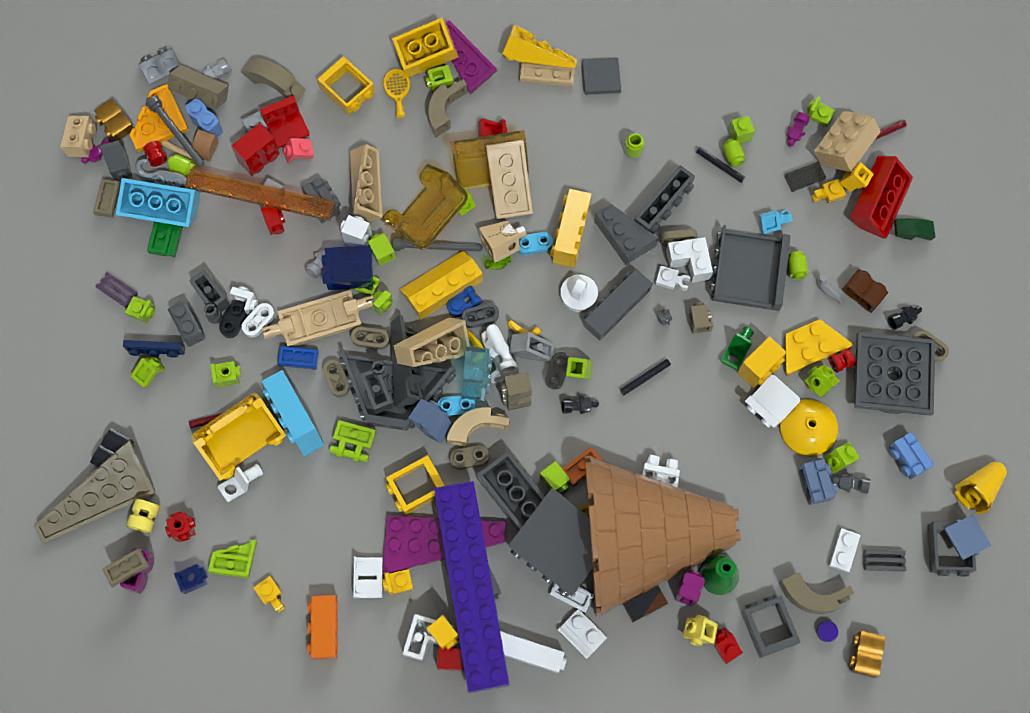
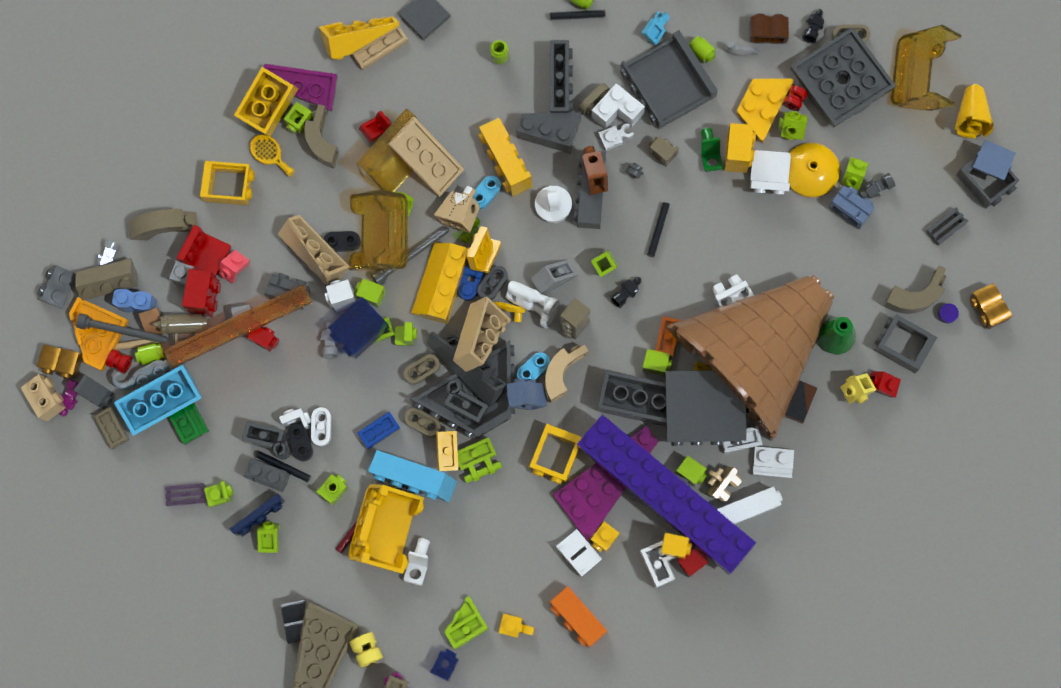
camera: 30 degrees left, 5 degrees up
(185, 531) = (410, 633): red brick -> none
(205, 327) = (283, 466): none -> black bar
(222, 161) = (181, 324): none -> dark tan piece
(319, 318) = (368, 386): tan plate -> none
(333, 414) = (447, 450): none -> yellow tile
(393, 194) = (341, 241): none -> black plate
(469, 458) = (577, 399): dark tan plate -> none
(476, 373) = (530, 330): clear light blue brick -> none
(492, 284) = (482, 251): none -> yellow bracket
(510, 587) = (692, 471): none -> lime brick
(517, 329) = (533, 270): yellow piece -> none
(518, 619) = (720, 480): none -> tan hips
(557, 371) = (589, 278): clear smoke plate -> none
(629, 290) = (594, 171): none -> dark orange torso
(690, 588) = (825, 363): magenta brick -> none
(844, 550) = (912, 242): white plate -> none
(910, 455) = (904, 131): medium blue brick -> none
(962, 411) = (914, 68): none -> clear yellow windscreen

